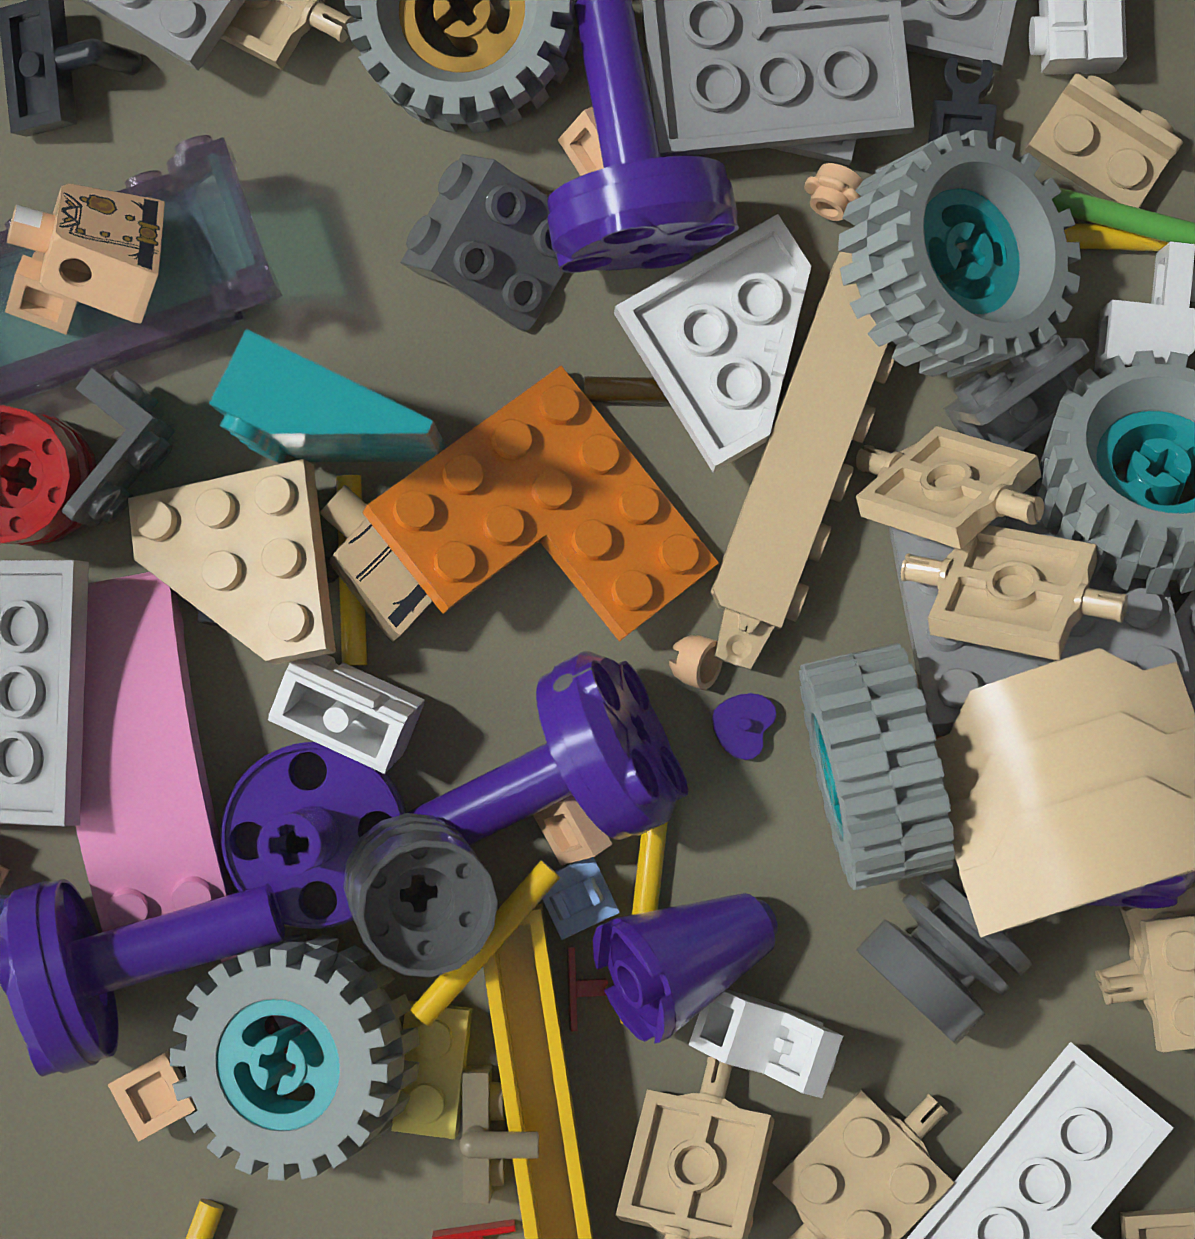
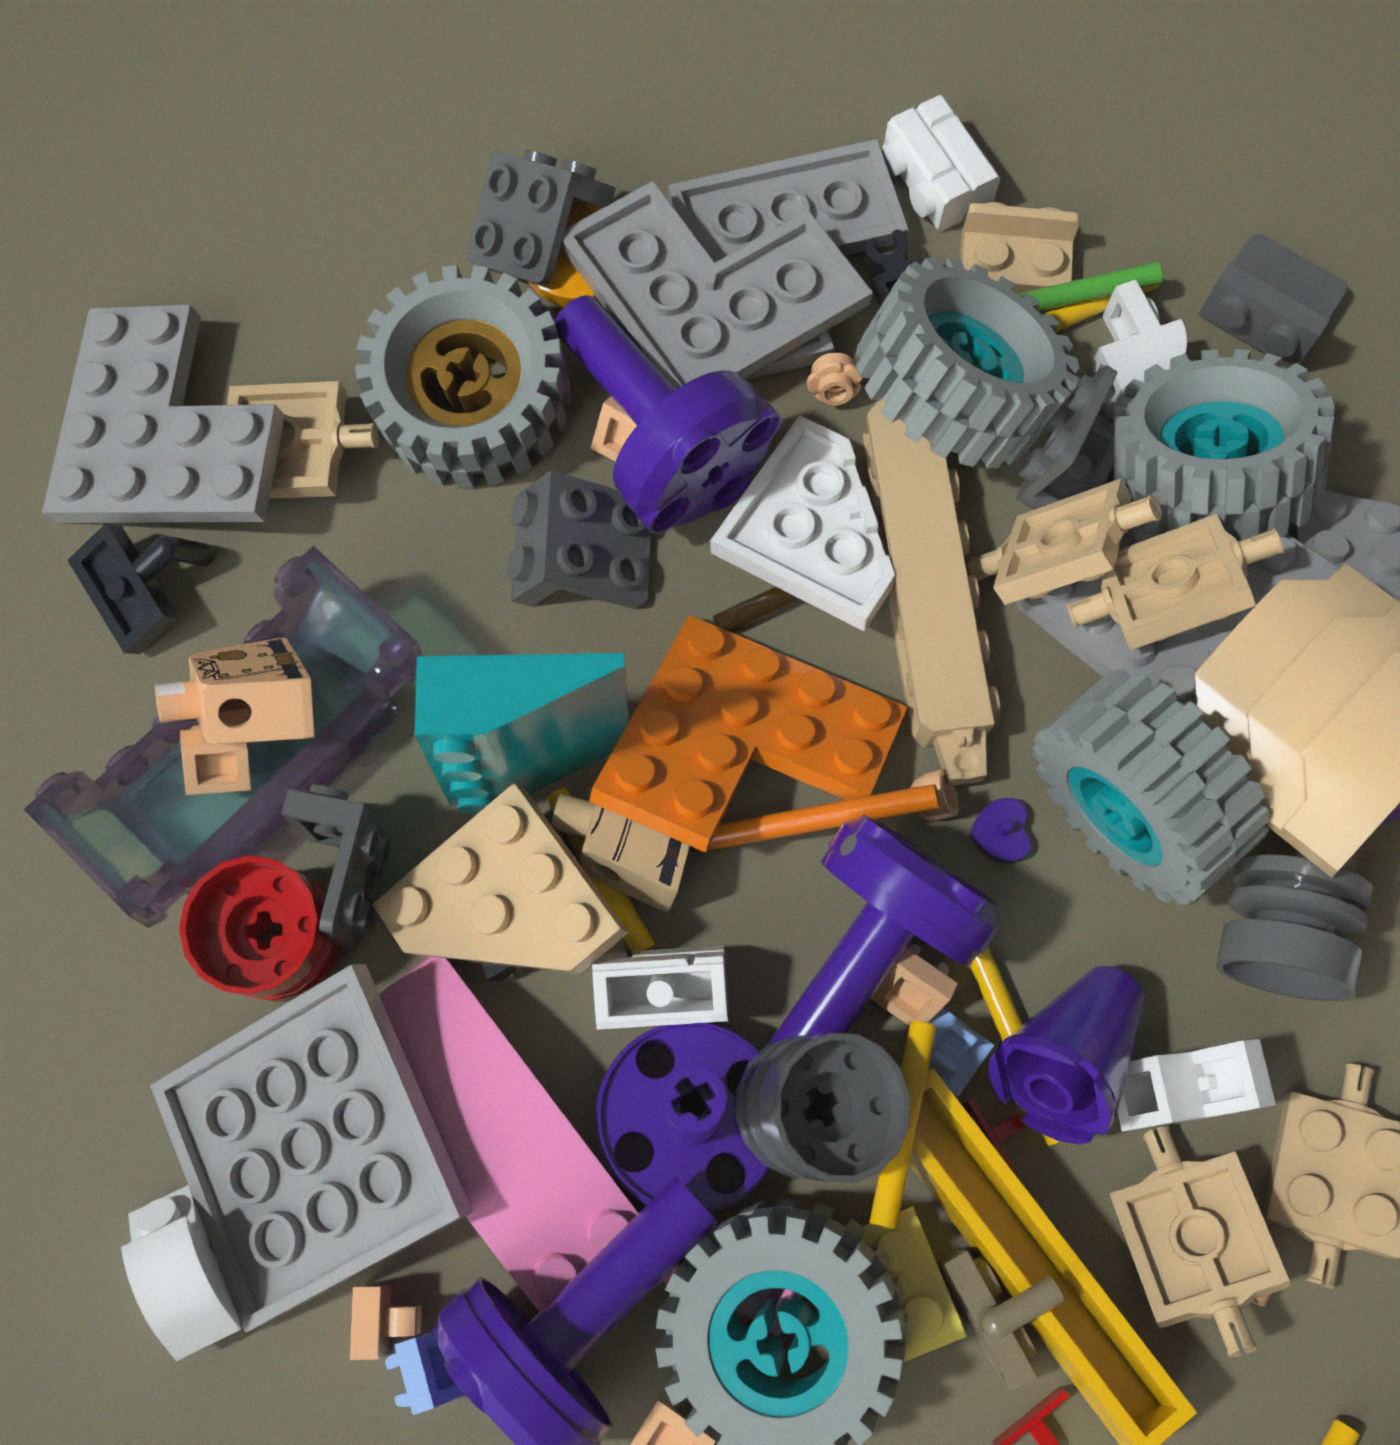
camera: 30 degrees left, 15 degrees down
(579, 632) = (825, 816): none -> orange bar

